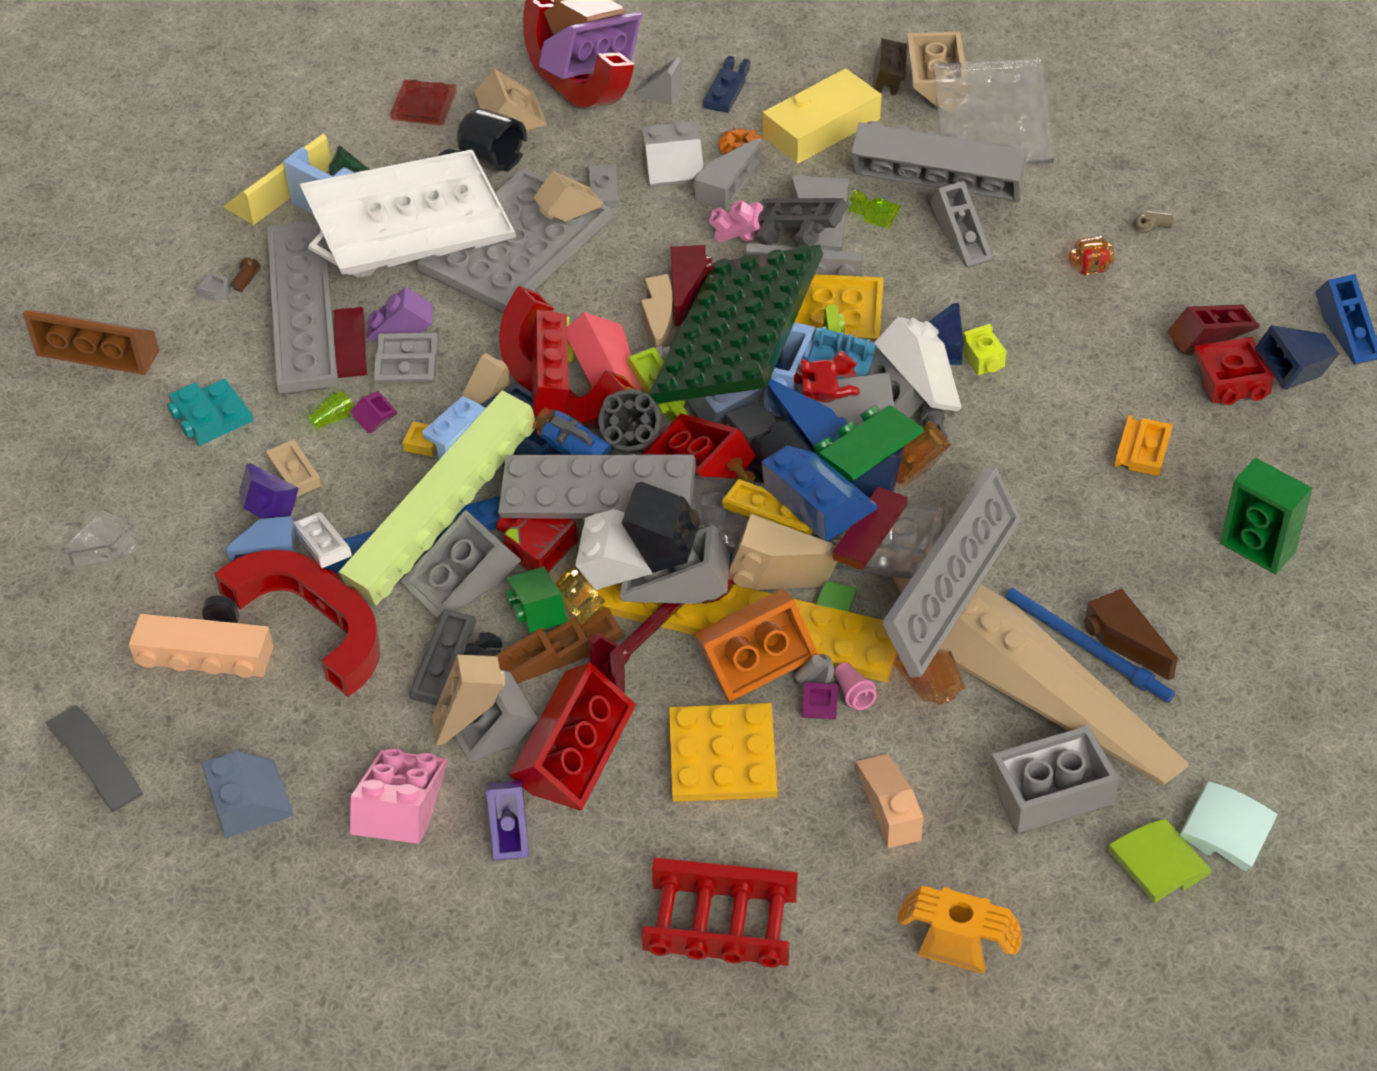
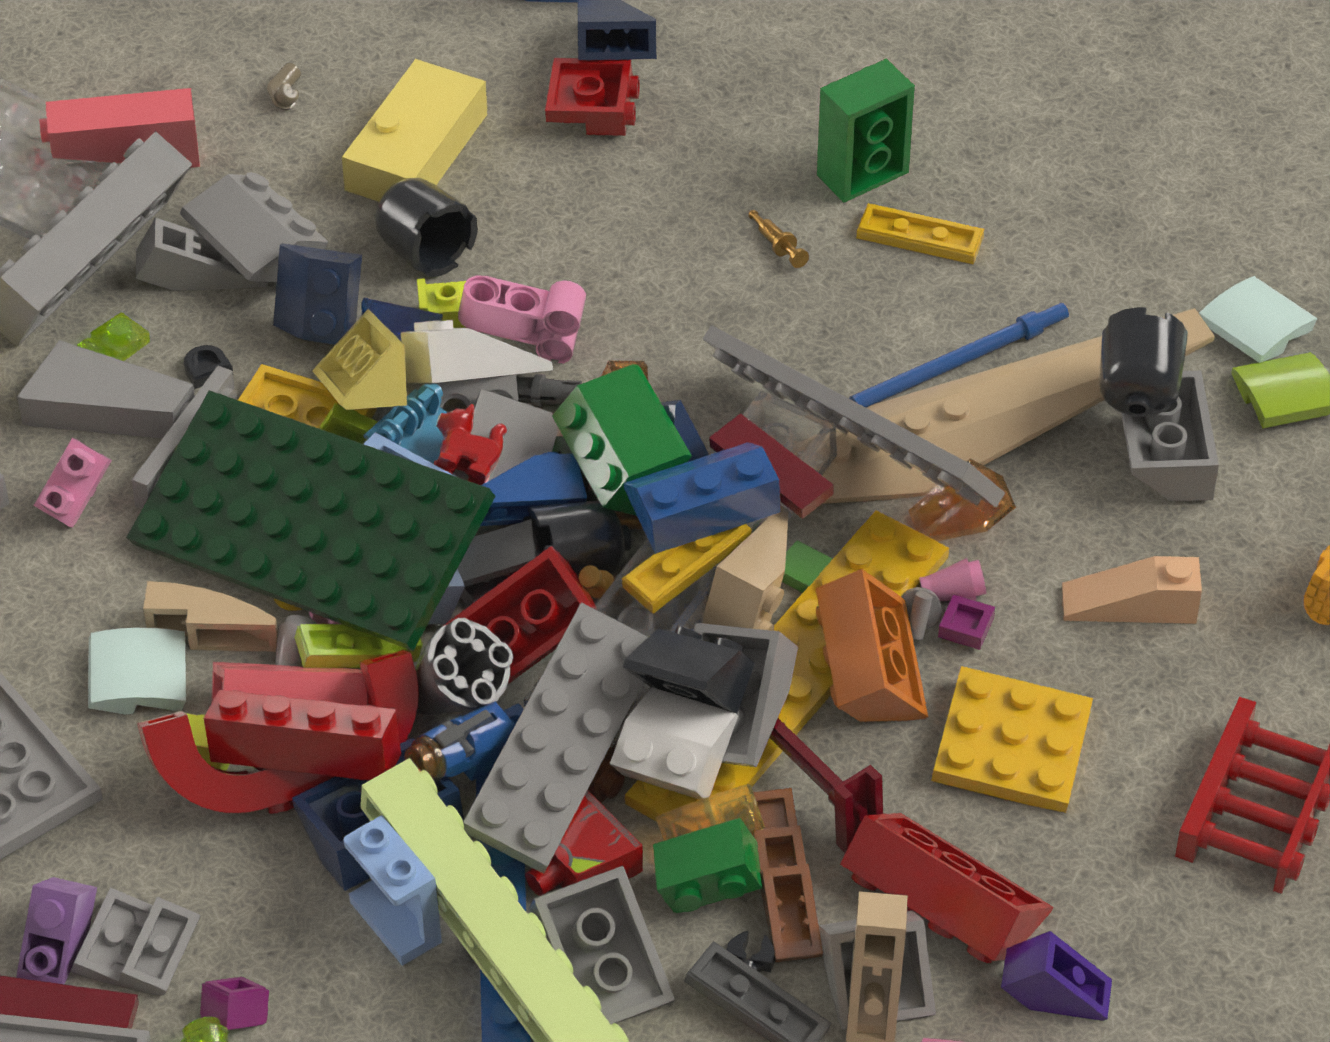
camera: 75 degrees left, 0 degrees up
(416, 443) = (322, 950): yellow plate -> none
(487, 379) = (284, 840): tan slope -> none
(610, 296) = (136, 669): none -> light aqua slope
(688, 272) = (134, 557): dark red slope -> none
(805, 213) = (135, 384): dark grey hinge -> none
(873, 313) = (365, 367): none -> light yellow slope
(878, 258) = (201, 363): none -> black tile
(949, 280) = (316, 292): none -> dark blue slope
(986, 397) = (525, 313): none -> bright pink piece
(992, 236) = (249, 223): none -> light grey slope
(1044, 315) = (425, 225): none -> black cylinder
(1046, 150) = (108, 125): none -> coral slope
(1076, 723) = (1142, 361): none -> black cylinder
(1092, 255) = (320, 157): clear orange head -> none
(1127, 632) = (962, 313): reddish brown slope -> none
(1134, 290) = (415, 130): none -> light yellow brick
(1144, 445) = (672, 212): light orange plate -> none
(1150, 514) = (783, 242): none -> pearl gold piece
(1209, 594) = (920, 233): none -> yellow tile
(1210, 325) = (510, 94): dark red slope -> none

